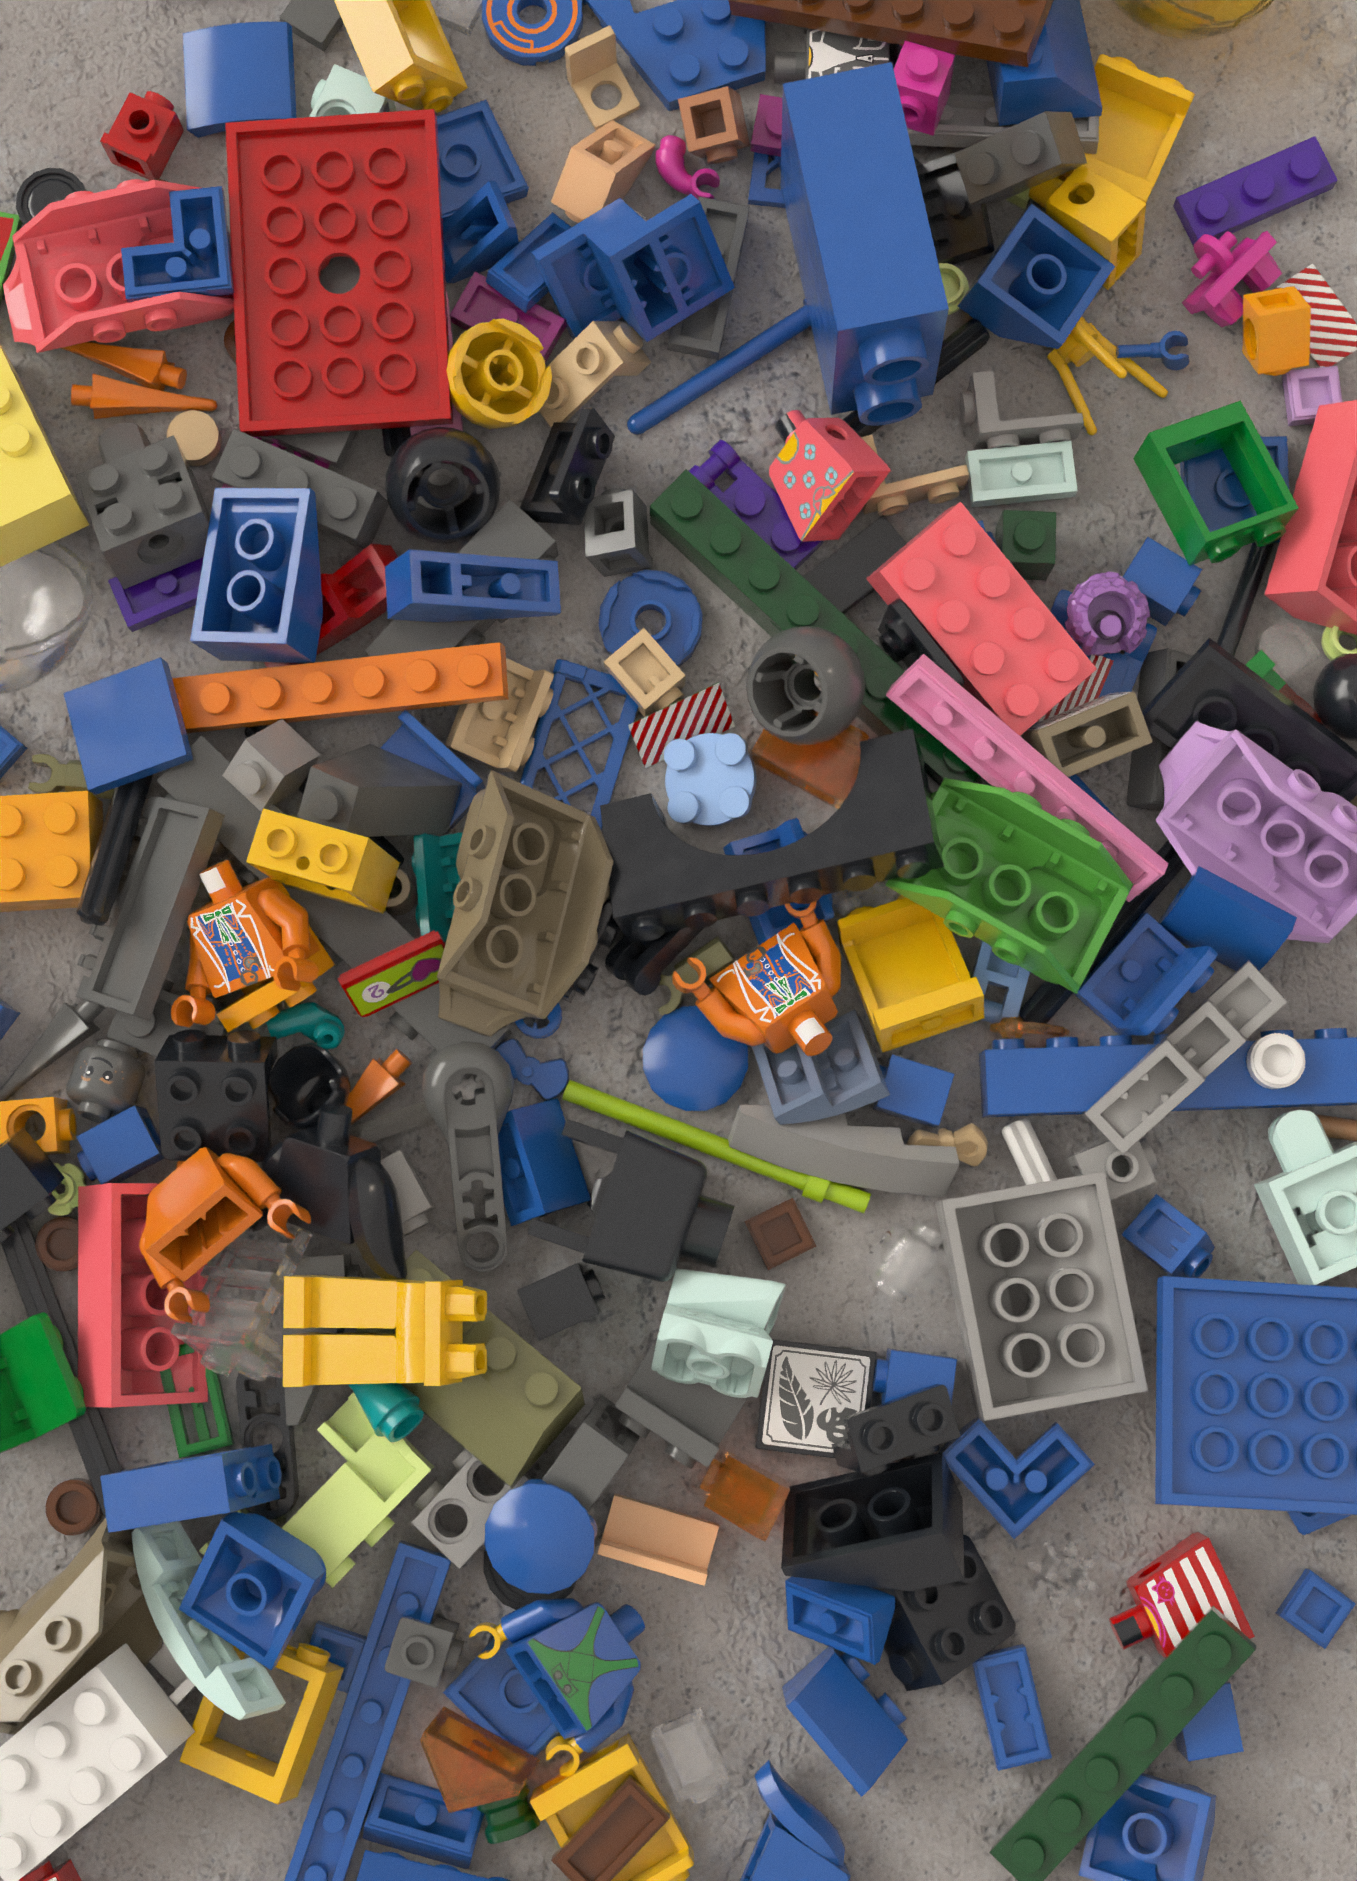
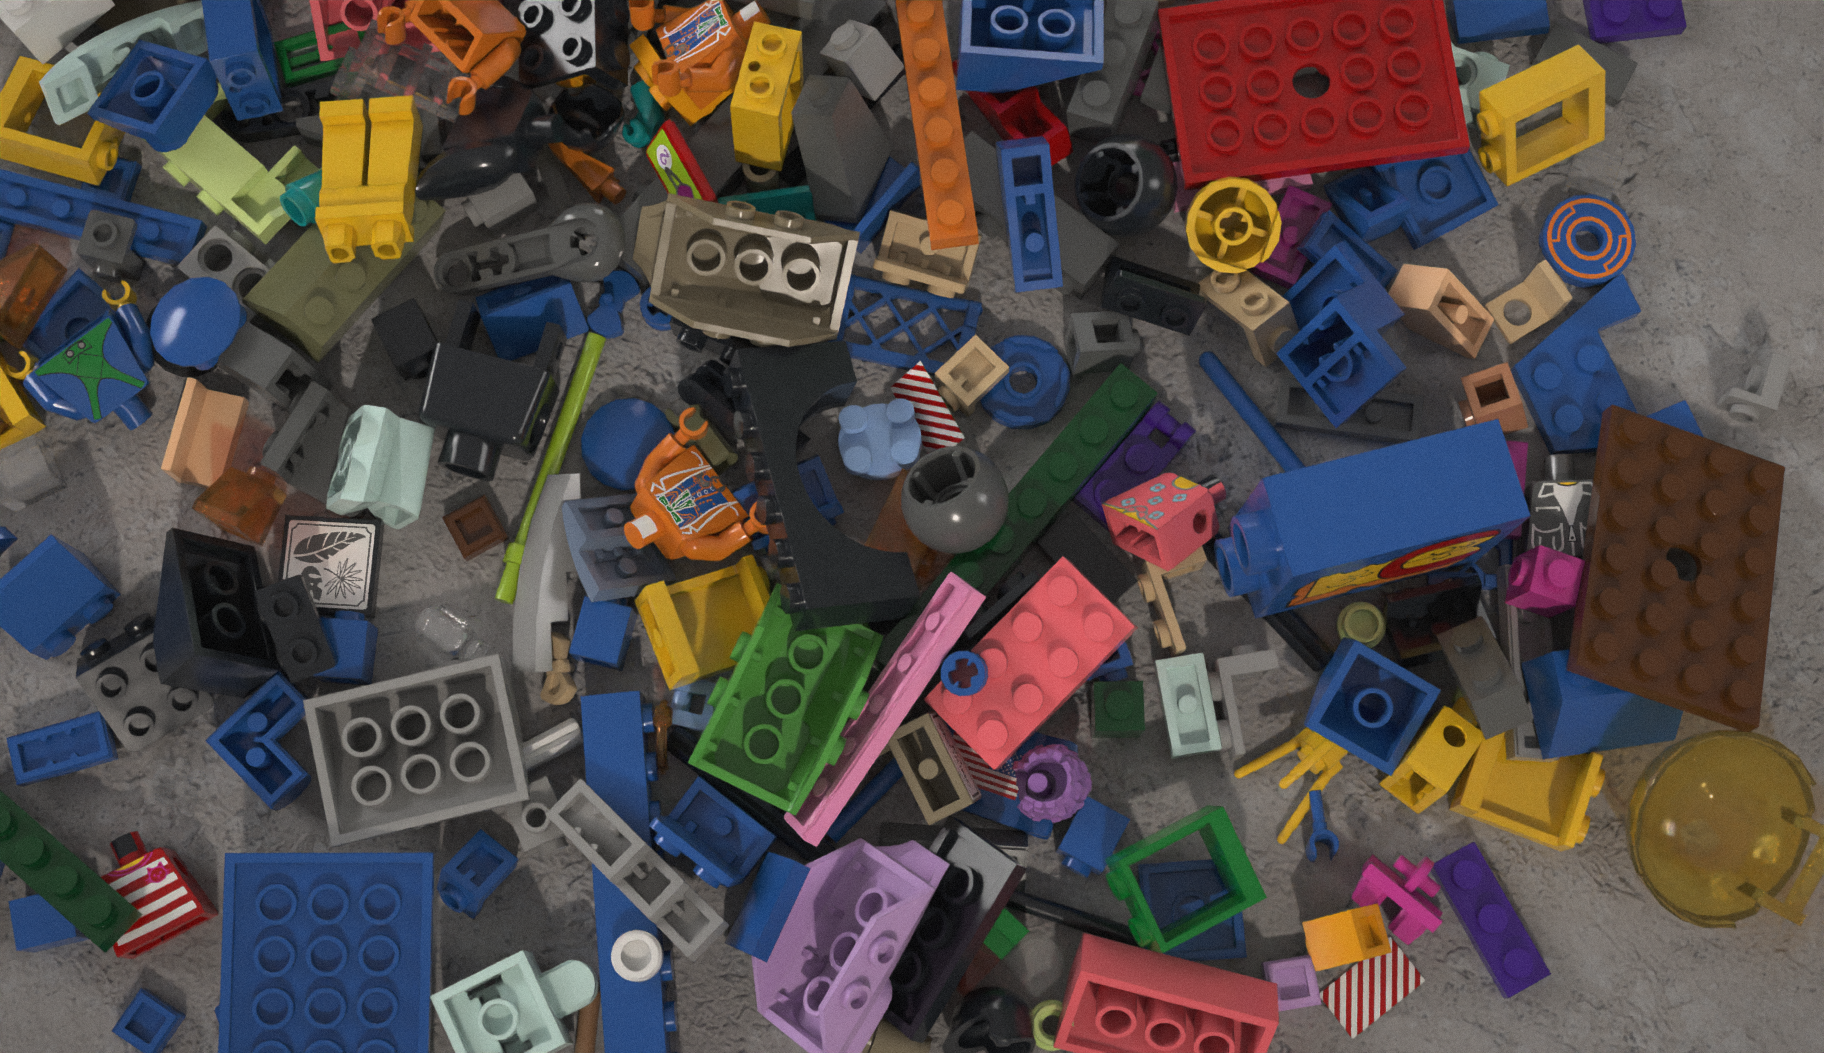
camera: 85 degrees right, 5 degrees down
(672, 169) = (1447, 376): dark pink arm -> none
(840, 1615) = (134, 593): blue slope -> none
(1008, 671) = (977, 681): none -> blue bush

